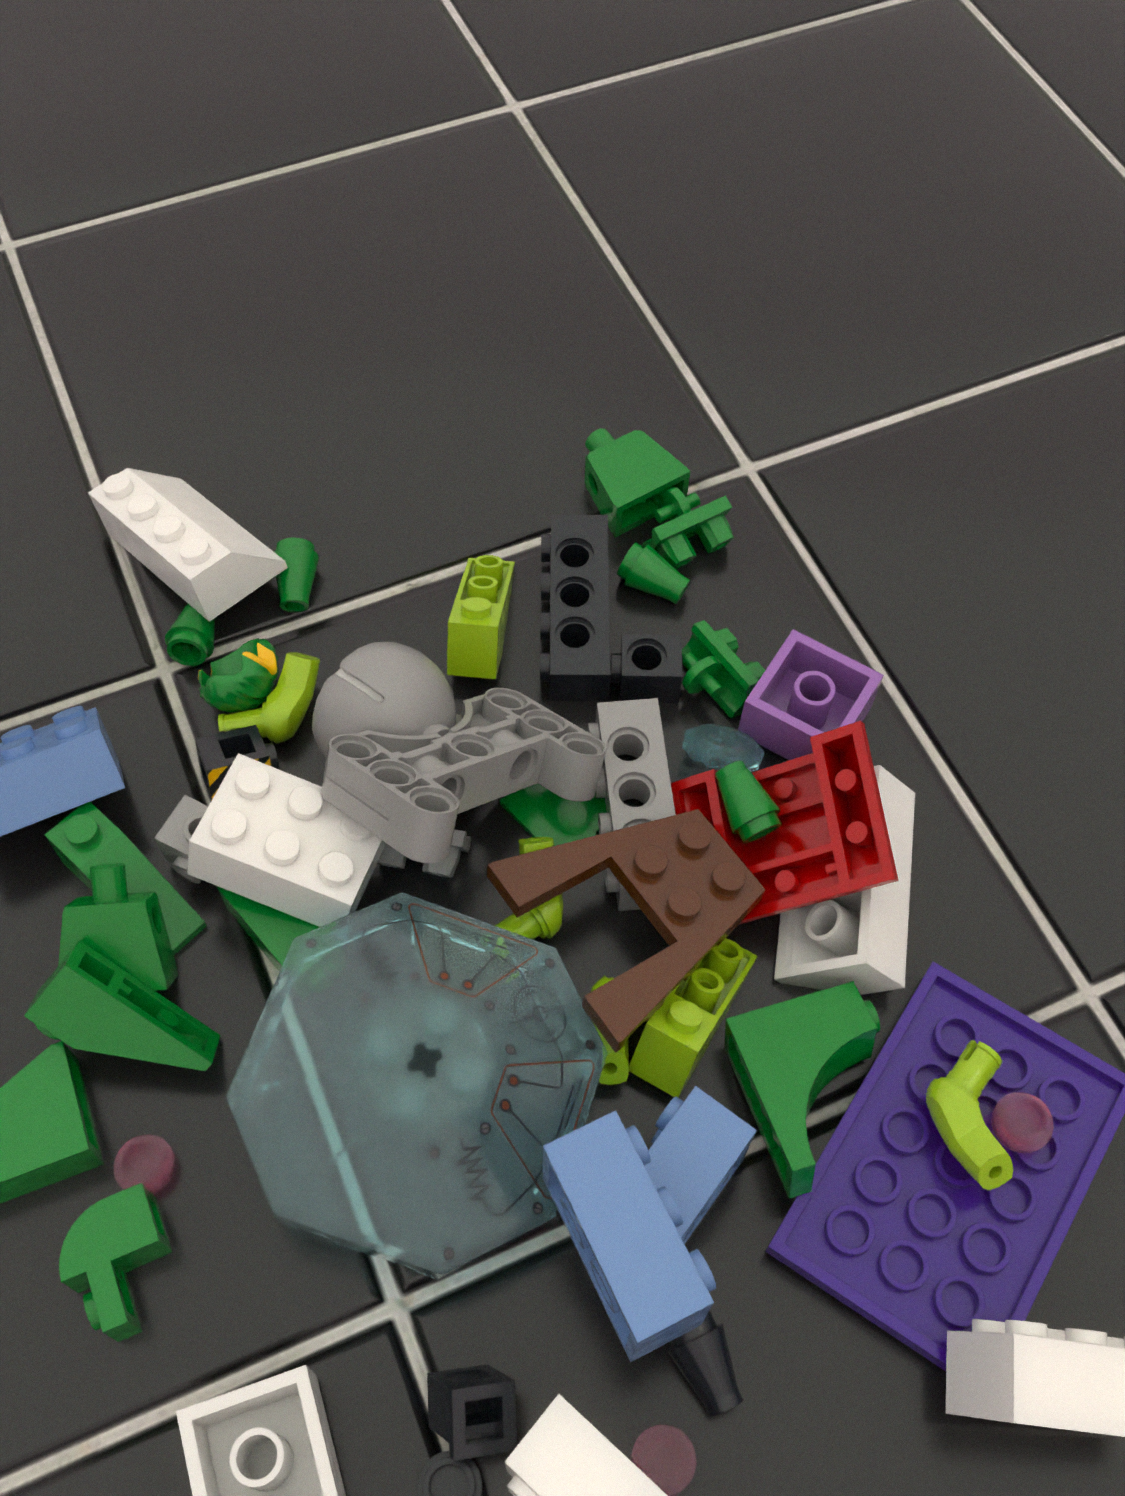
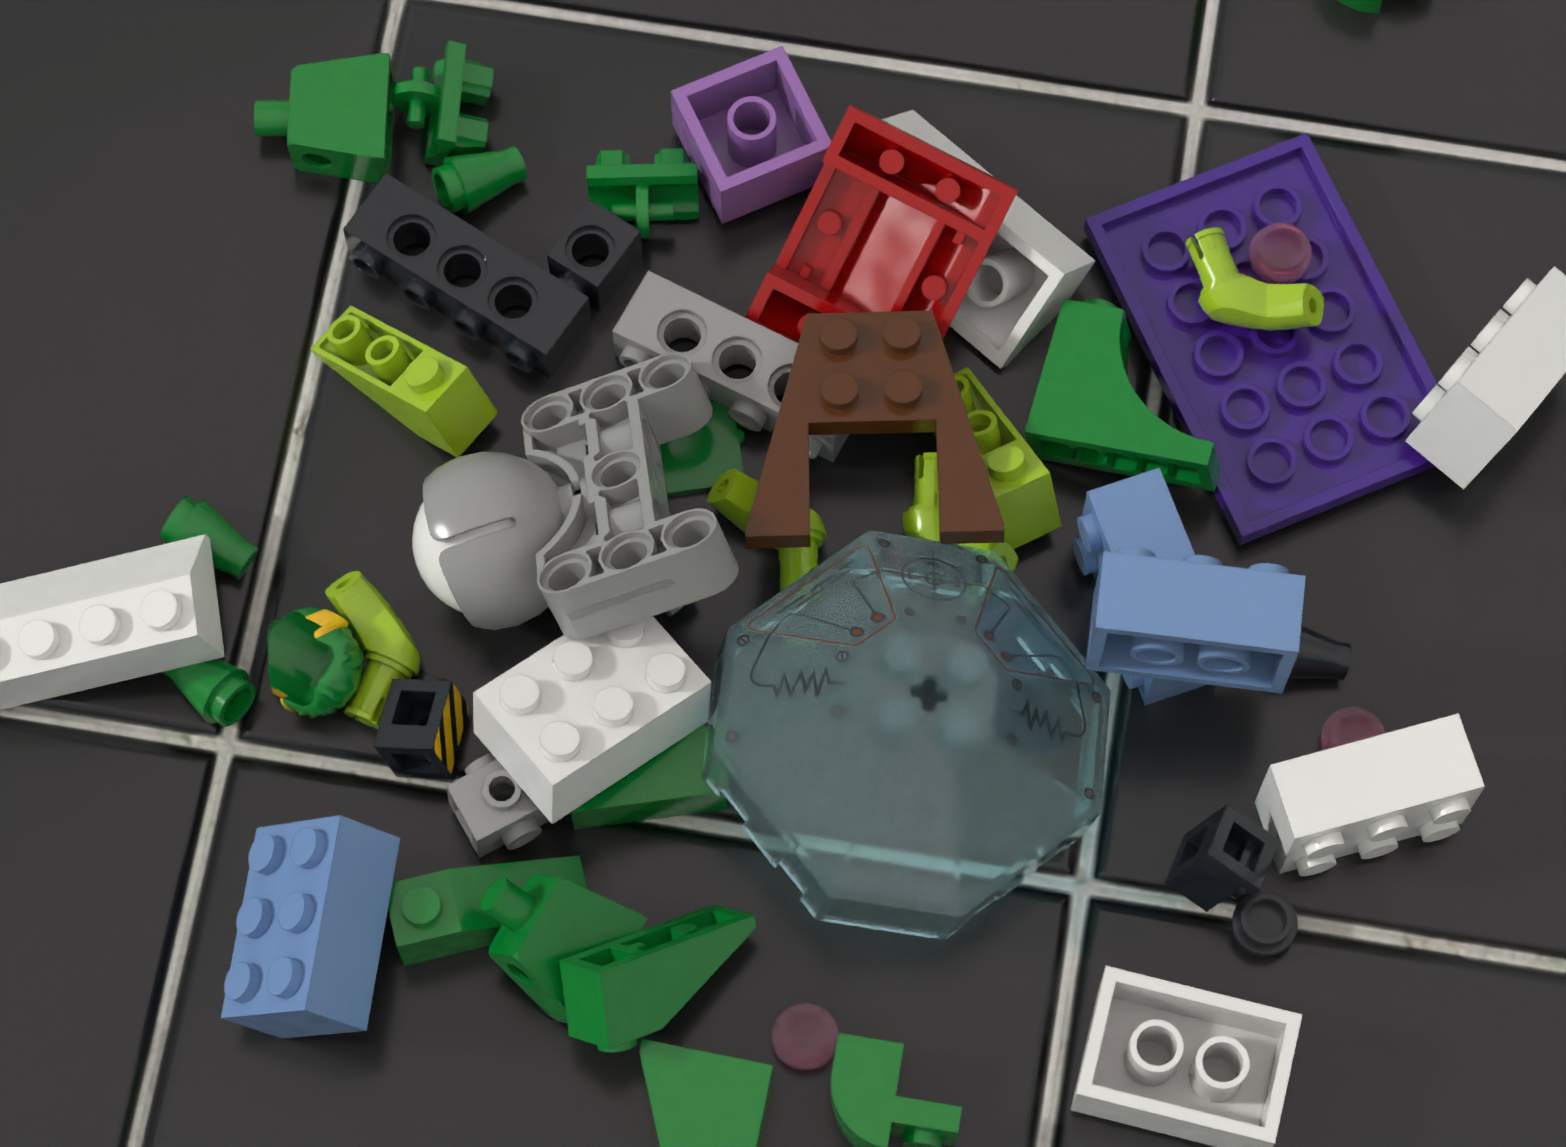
camera: 55 degrees left, 10 degrees up
(721, 746) = (739, 248): clear light blue gear -> none
(747, 803) = (825, 266): green cone -> none

